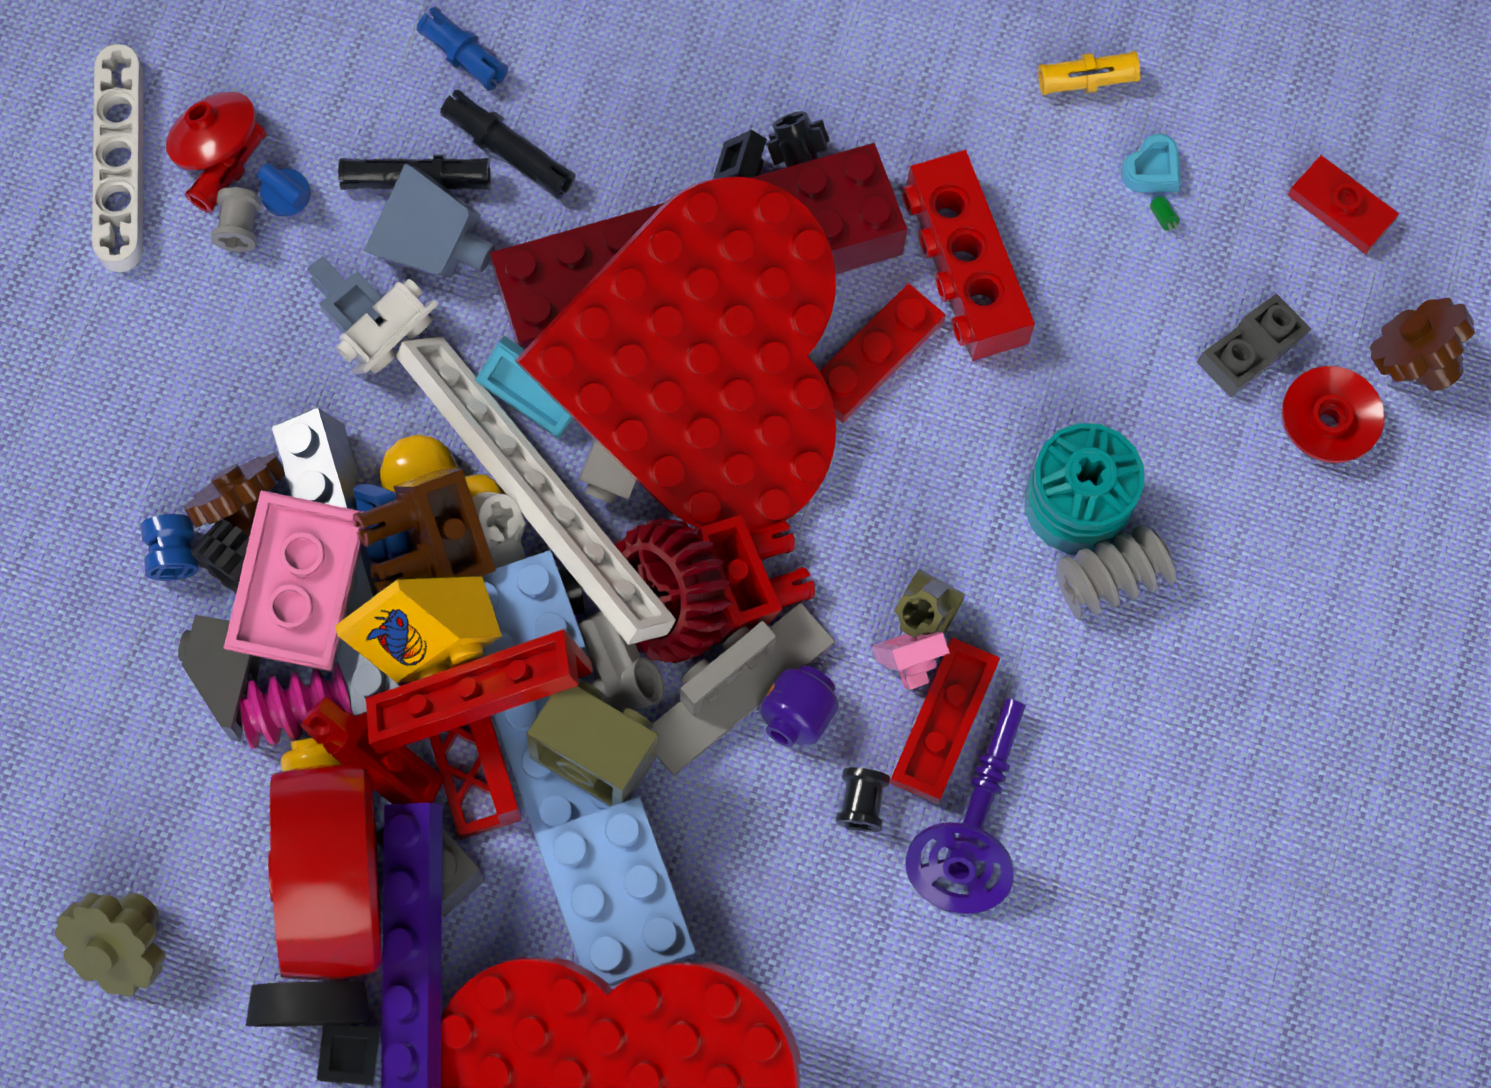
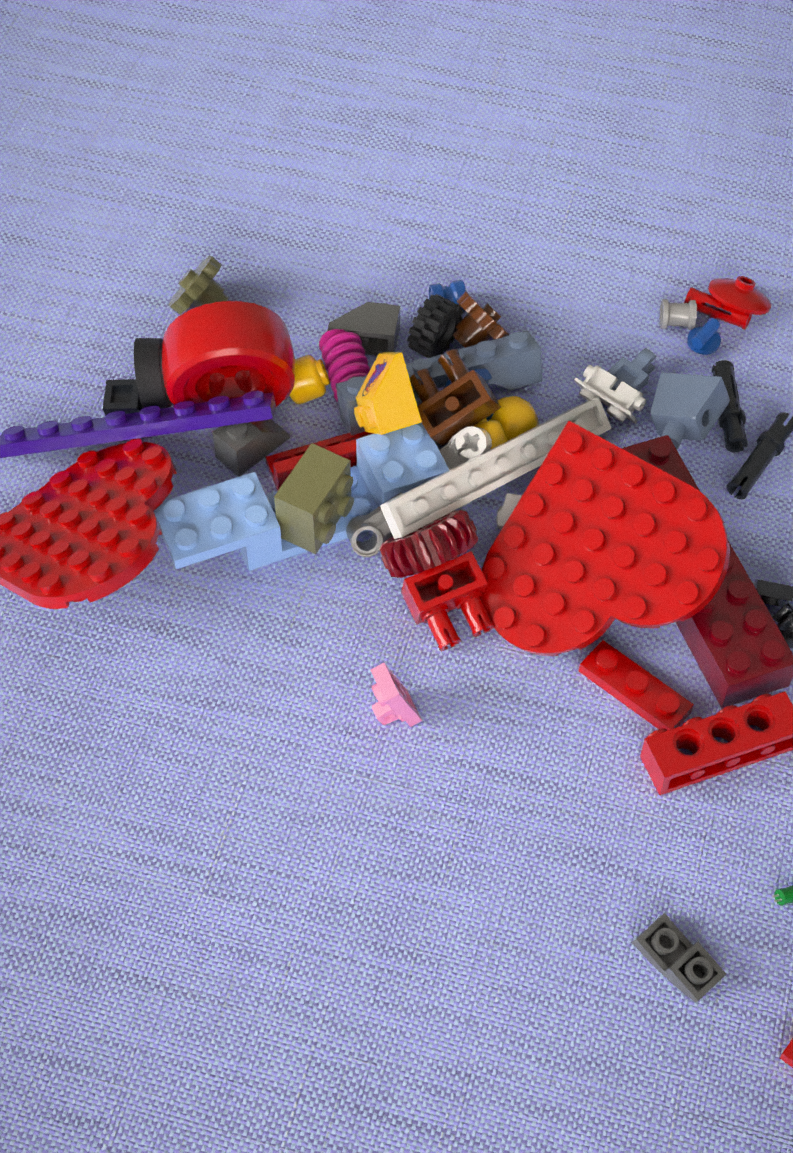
camera: 90 degrees right, 15 degrees down
(124, 178) = (775, 254): white beam -> none
(295, 581) = (418, 333): bright pink tile -> none
(396, 774) = (308, 398): red hinge -> none
(475, 690) = (346, 429): red fence -> none
(735, 684) = (373, 600): light grey bracket -> none
(799, 706) = (355, 636): dark purple head -> none
(862, 799) = (290, 679): black bush -> none
(927, 605) = (436, 713): olive piece -> none
(944, 721) = (350, 731): red plate -> none
(965, 850) = (248, 739): dark purple dish -> none
(1076, 513) = (529, 832): teal wheel -> none
(1114, 568) = (468, 845): light grey piece -> none
(1346, 399) = (625, 994): red dish -> none
(1425, 344) = (689, 1086): reddish brown plant -> none

